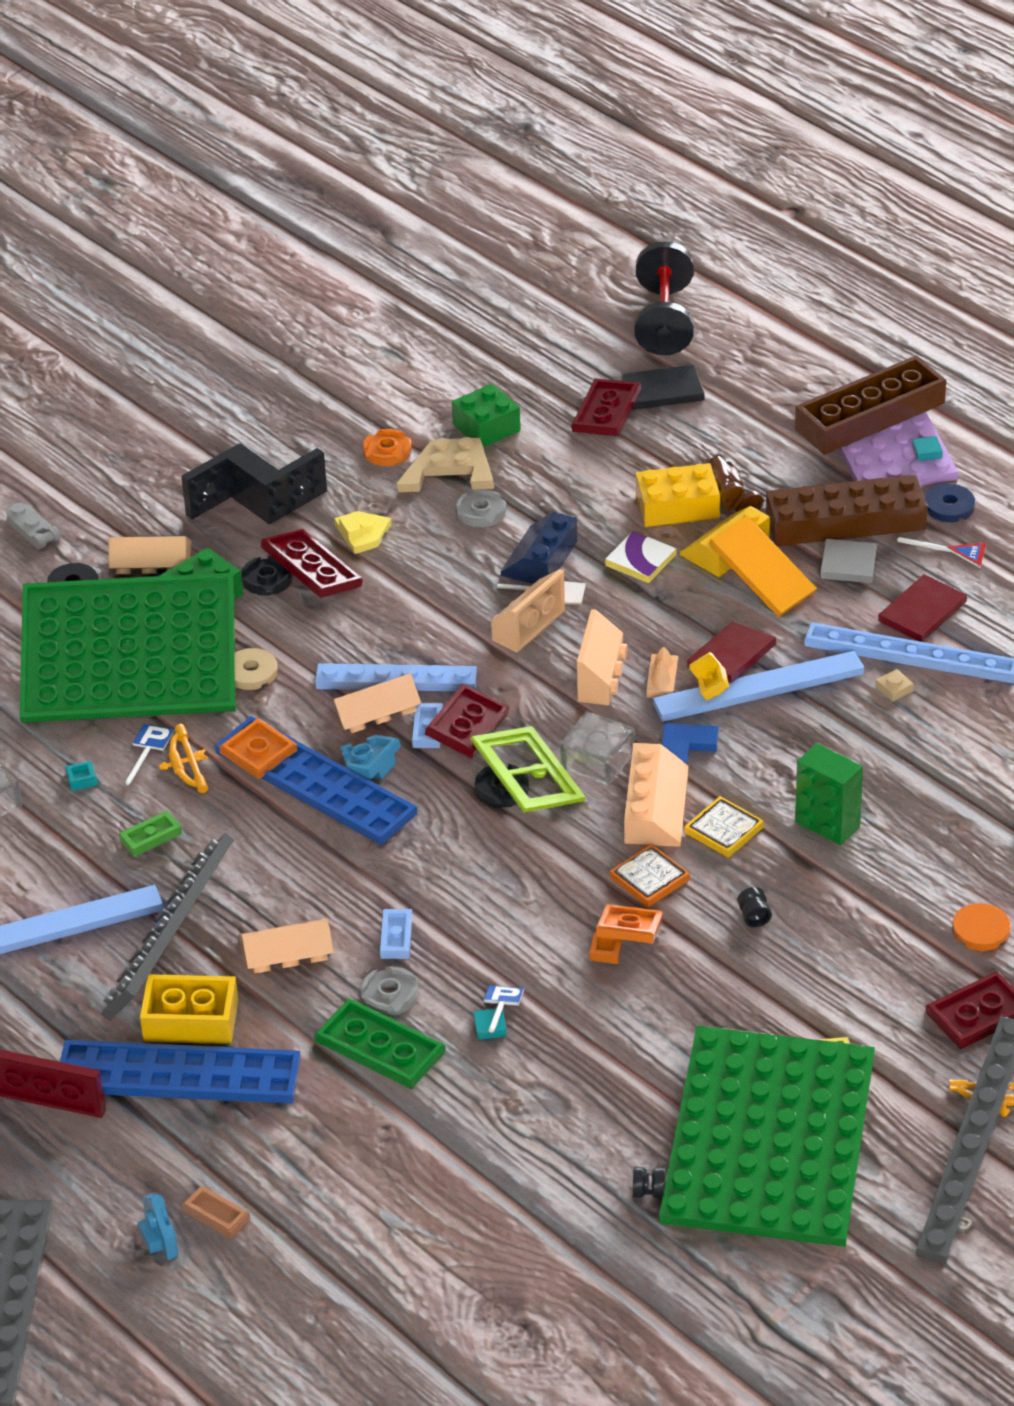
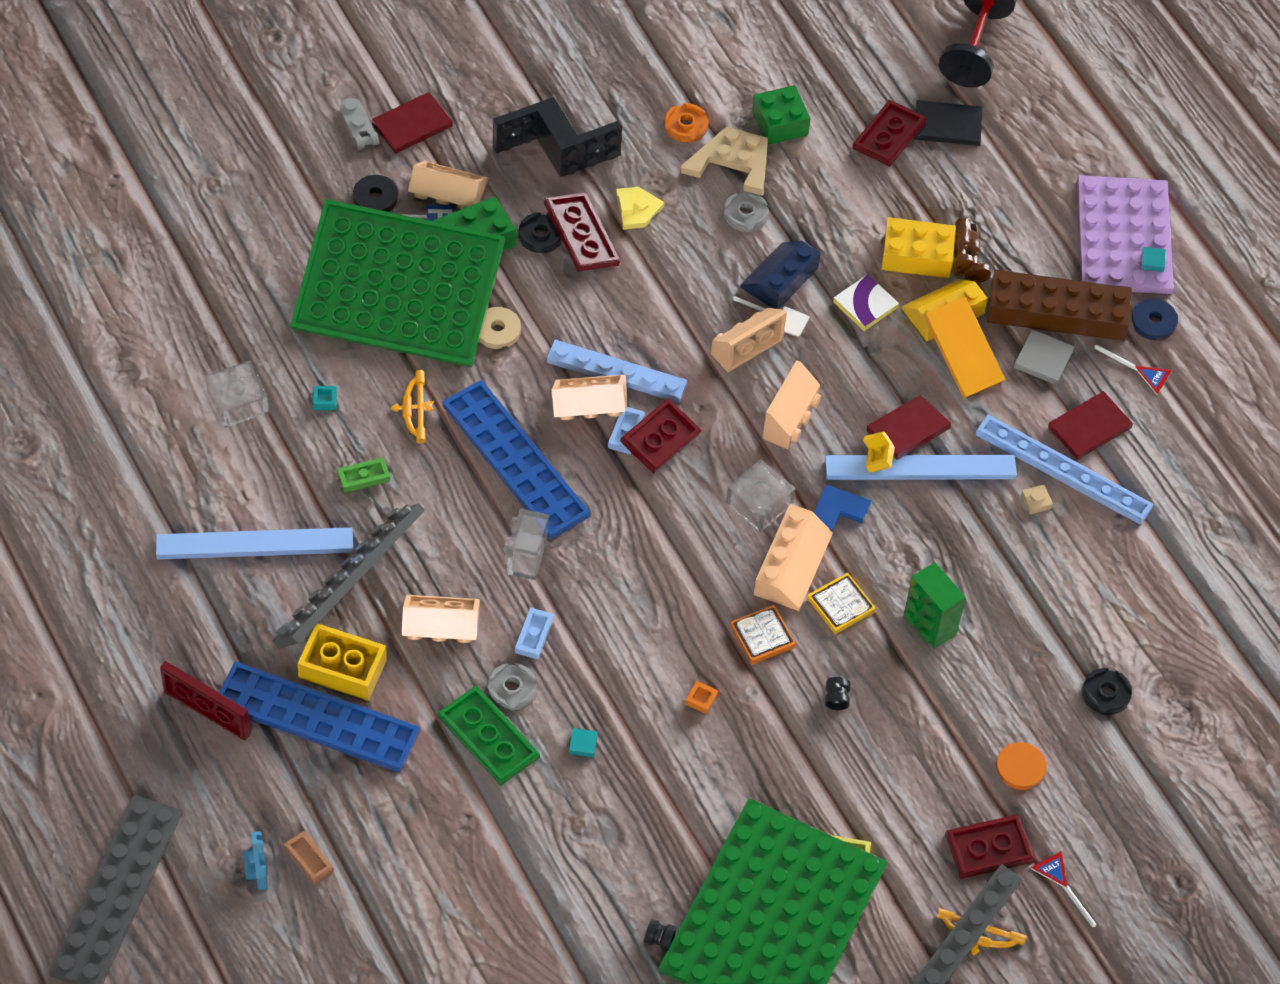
camera: 10 degrees right, 15 degrees up
(91, 511) = (412, 122): none -> dark red tile
(151, 738) = (393, 375): piece -> none
(258, 748) = (476, 416): orange tile -> none
(357, 848) = (526, 544): none -> clear brick
(372, 757) = (568, 449): dark azure plate -> none
(494, 795) = (669, 519): black tile -> none
(502, 995) = (601, 719): piece -> none
(571, 792) = (708, 463): lime door -> none
(629, 923) = (728, 680): orange tile -> none
(662, 674) = (842, 433): light nougat tile -> none
(870, 404) = (1118, 201): reddish brown brick -> none

